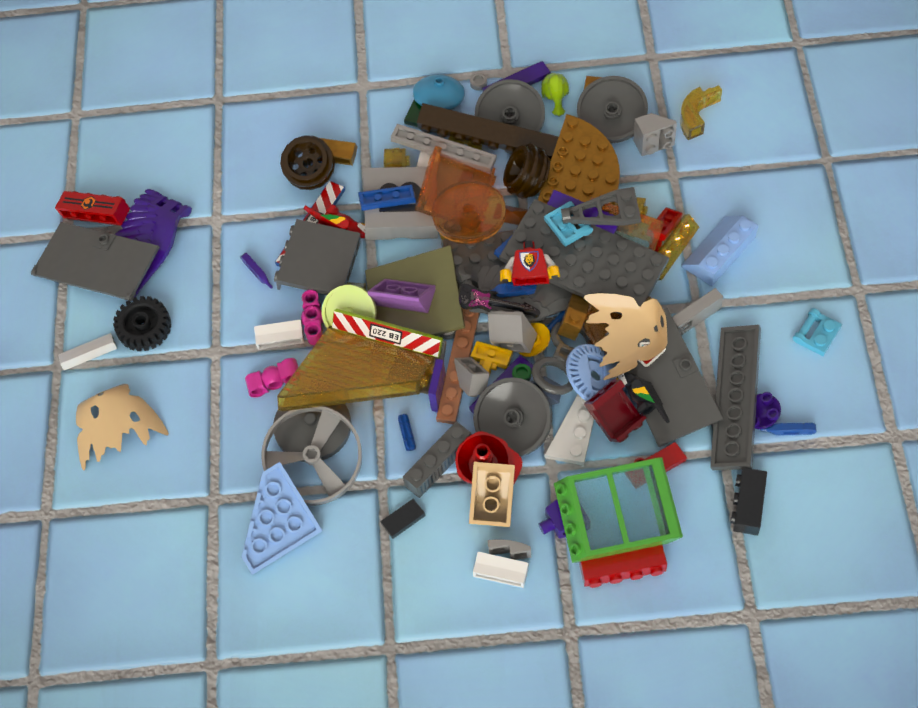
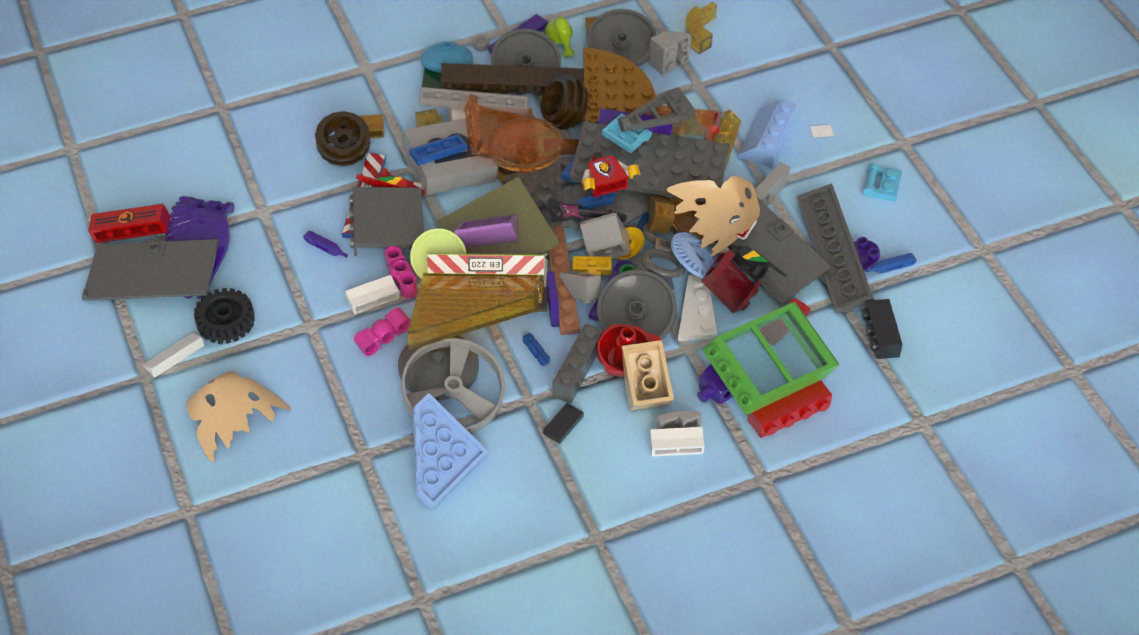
camera: 25 degrees left, 10 degrees down
(778, 256) = (821, 131): none -> white sticker

